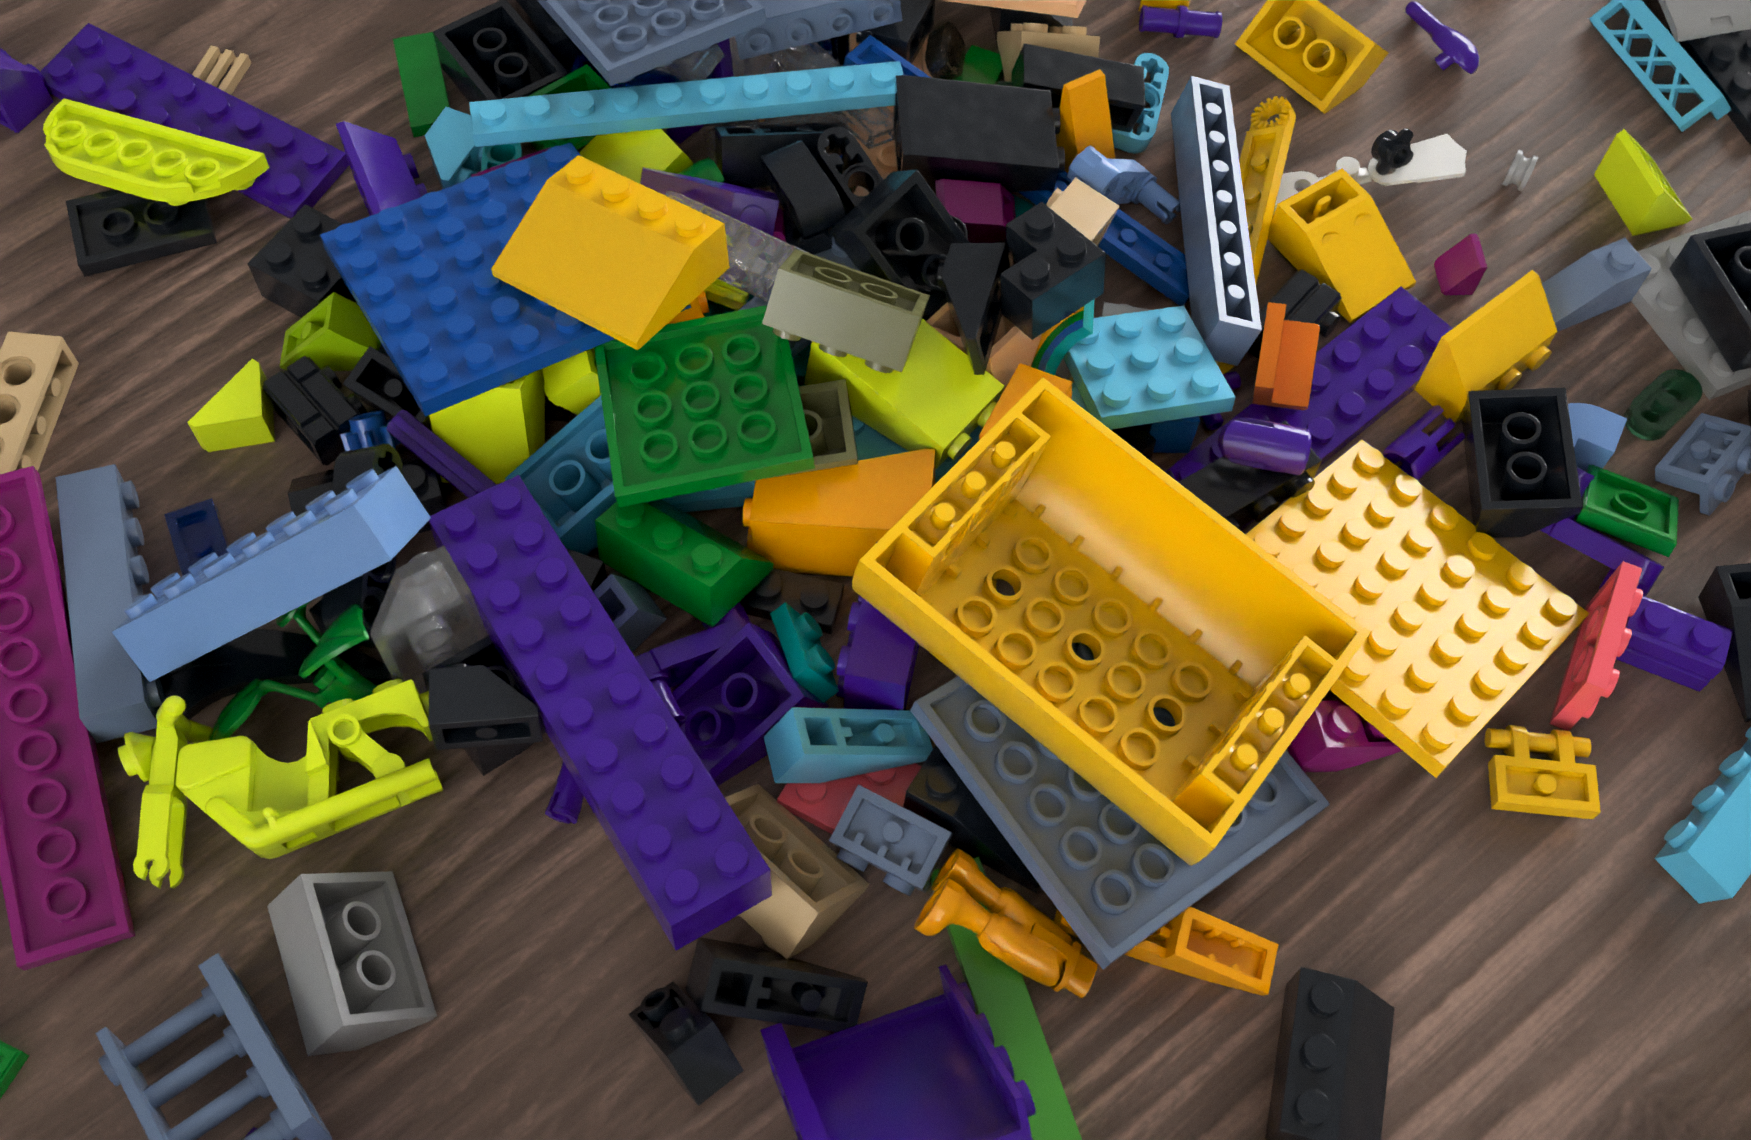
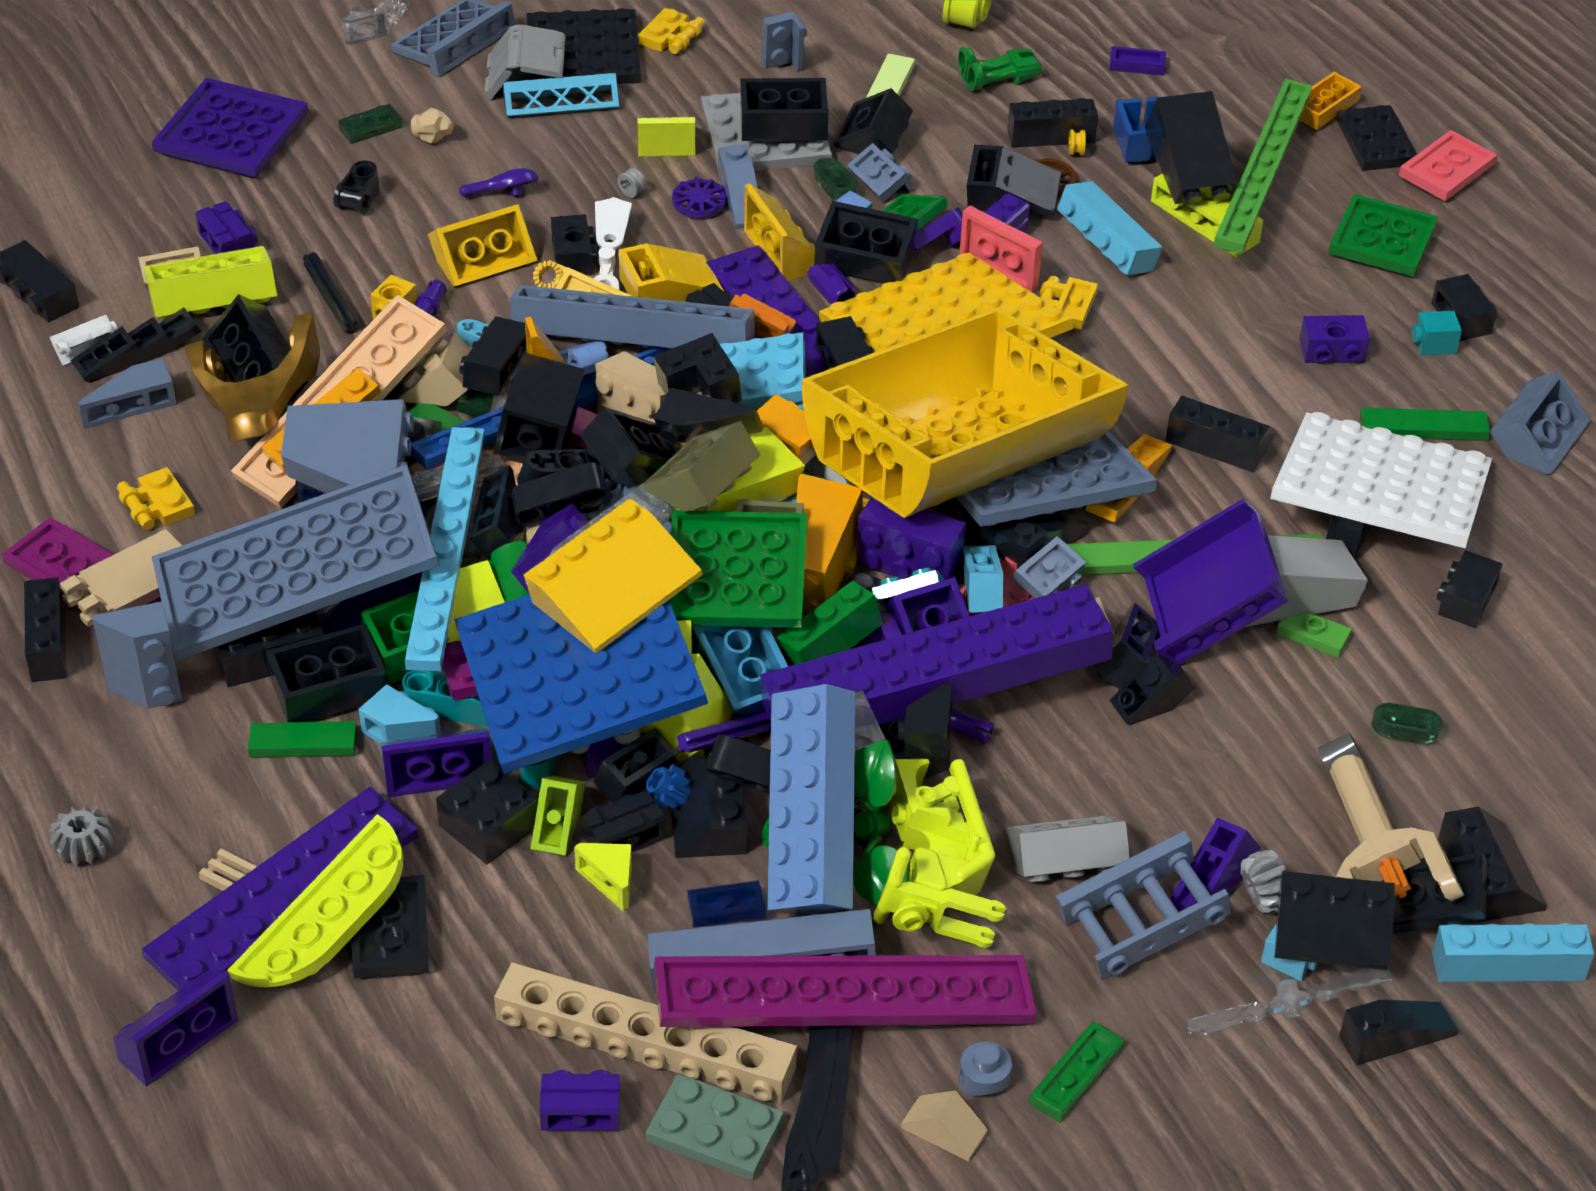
camera: 75 degrees left, 15 degrees down
(1007, 929) = (1102, 538): light orange piece -> none
(1266, 445) = (840, 329): dark purple arm -> none
(1352, 129) = (573, 243): none -> black brick
(1392, 150) = (606, 226): black plate -> none
(1461, 267) = (700, 230): magenta slope -> none
(1534, 252) = (699, 198): none -> dark purple wheel

